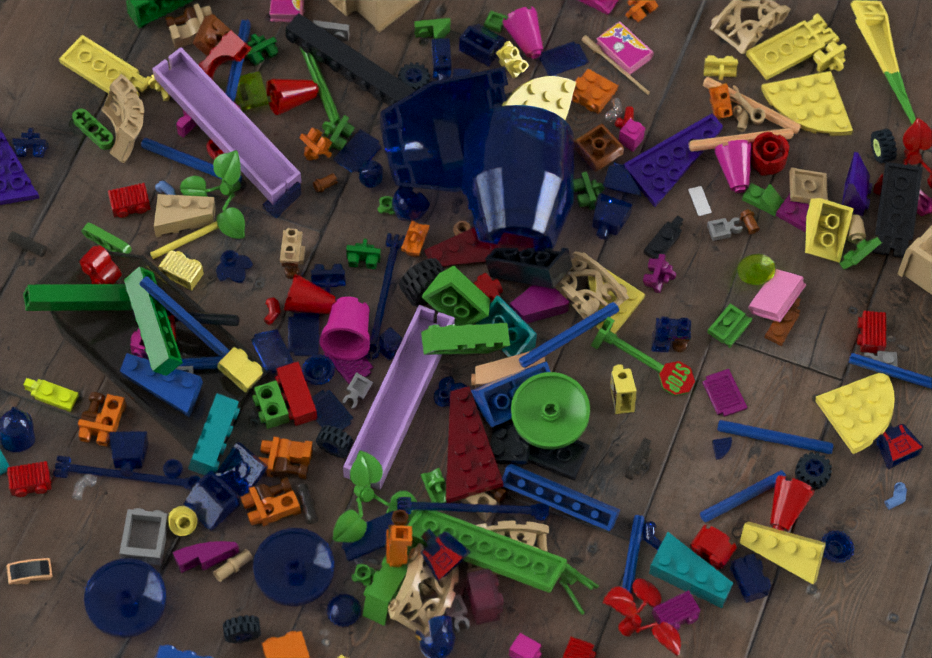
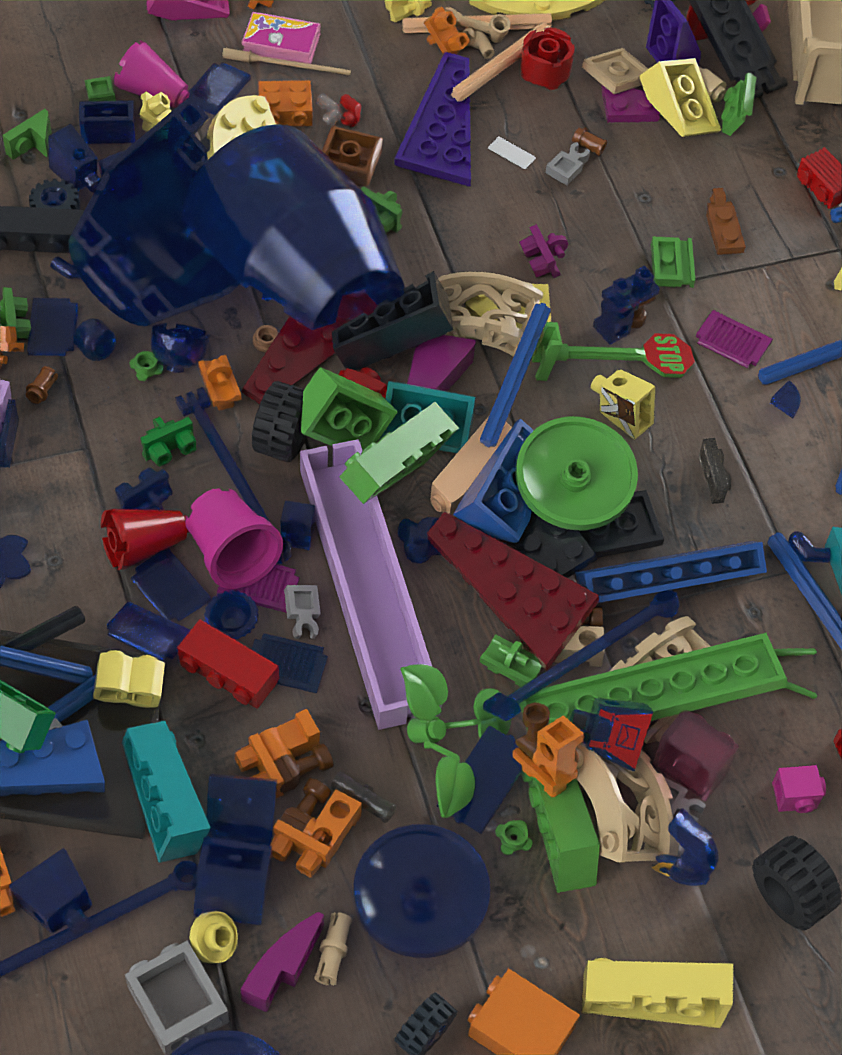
camera: 40 degrees left, 5 degrees down
(79, 487) = (20, 988): clear arm -> none
(173, 468) = (137, 876): clear blue plate -> none
(272, 404) = (211, 695): bright green brick -> none
(274, 310) = (105, 578): red arm -> none
(292, 252) = (75, 488): tan hips -> none
(334, 441) = (334, 690): black wheel -> none
(343, 610) = (528, 902): clear blue hat -> none
(610, 215) = (429, 221): clear blue torso -> none
(621, 180) = (414, 174): clear blue slope -> none
(631, 134) = (376, 119): dark pink brick -> none
(664, 238) = (513, 214): black hinge -> none
(735, 163) = (521, 87): dark pink cone -> none
(756, 263) = (646, 184): clear neon green dish -> none
(766, 200) = (582, 111): bright green slope -> none
(777, 295) = (694, 198): bright pink piece -> none

